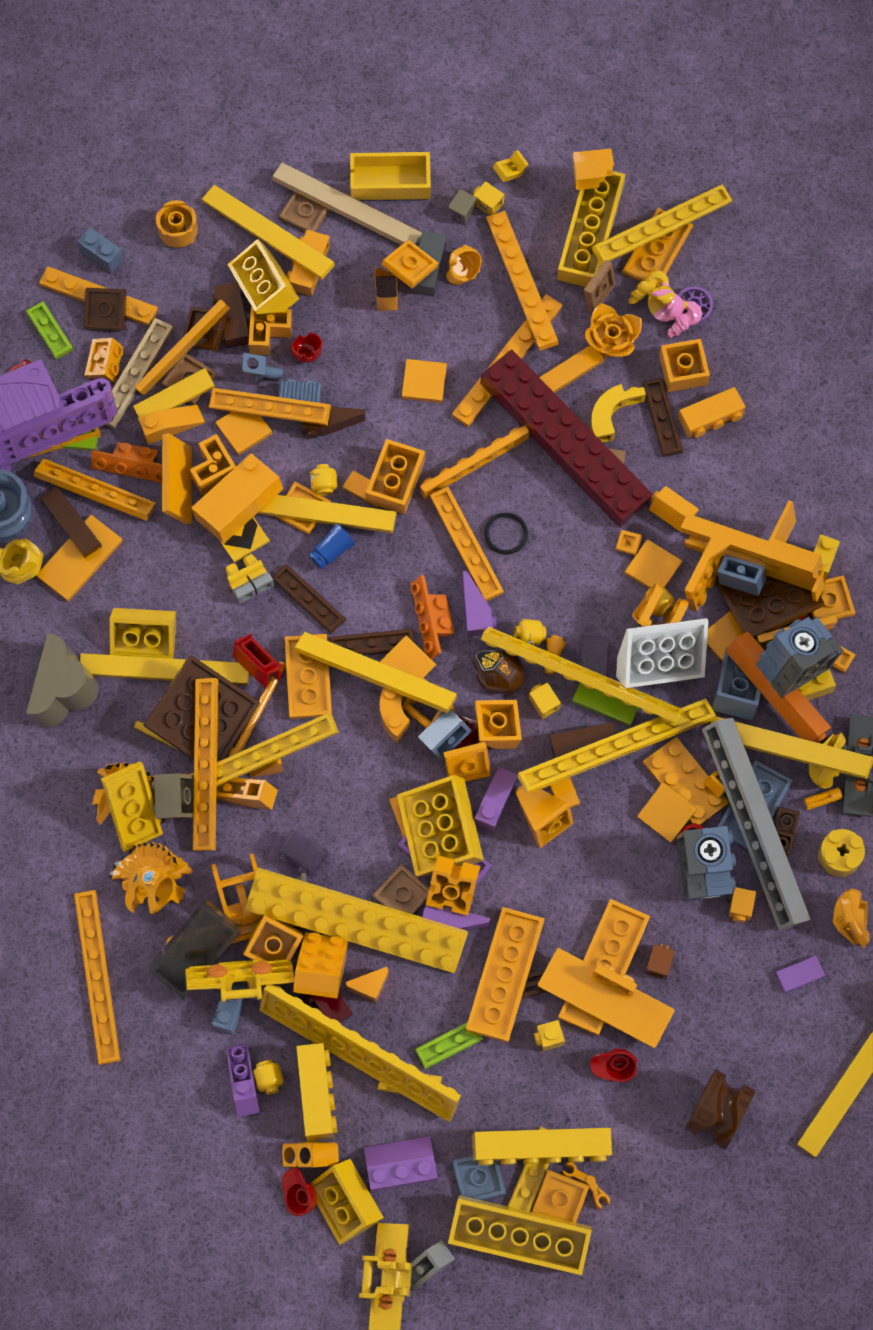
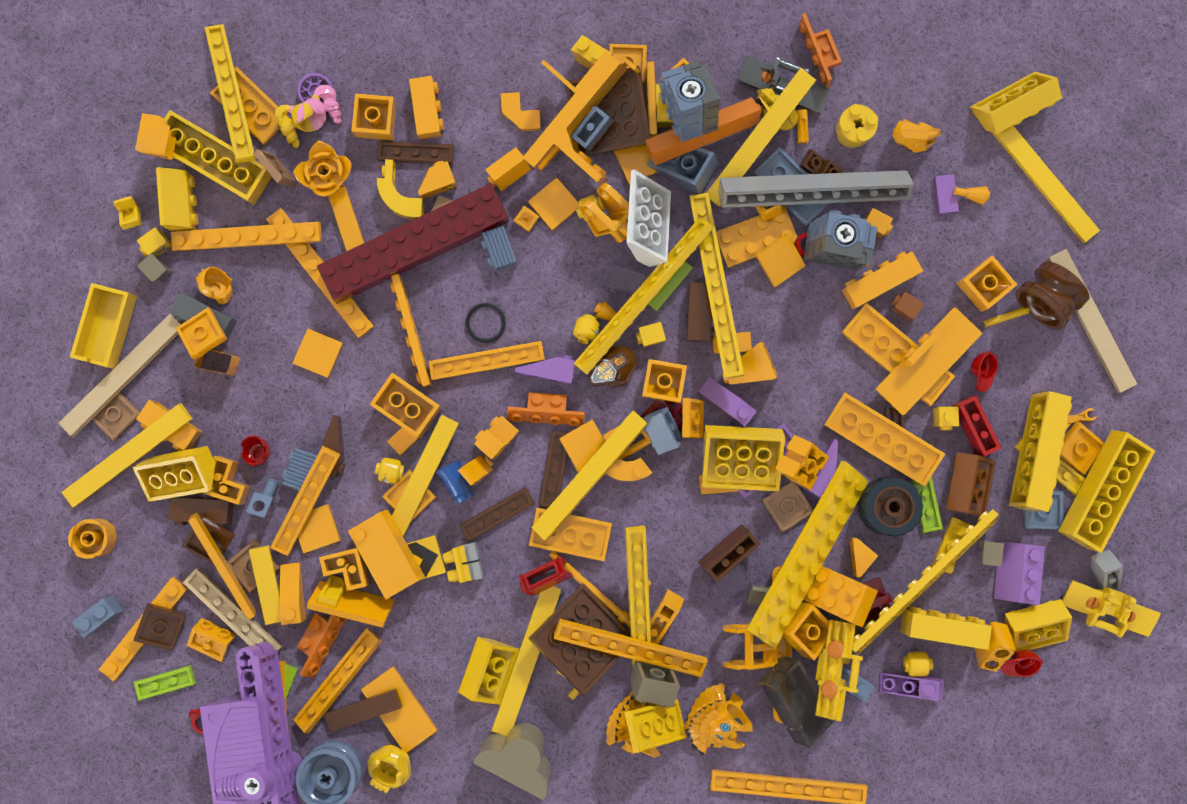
camera: 75 degrees left, 15 degrees up
(184, 456) = (332, 591): none -> yellow tile
(333, 841) = (729, 553): none -> reddish brown brick
(348, 560) = (476, 469): none -> light orange slope
(386, 574) = (497, 438): none -> light orange brick
(413, 1126) = (991, 552): none -> dark tan panel
(428, 1015) = (905, 509): none -> wheel
(485, 1085) = (970, 484): none -> dark orange slope
(538, 205) = (176, 199): none -> yellow slope
(549, 1070) = (977, 426): none -> red brick
(587, 523) = (499, 248): none -> sand blue brick
(639, 444) = (437, 180): none -> light orange slope
(681, 927) = (885, 278): none -> light orange brick
(683, 1077) = (1006, 316): none -> yellow bar
(709, 1177) = (1099, 333): none -> tan tile
(712, 1039) = (986, 283): none -> light orange slope
(739, 498) = (524, 120): none -> light orange tile
(810, 1005) = (977, 194): none -> light orange cone

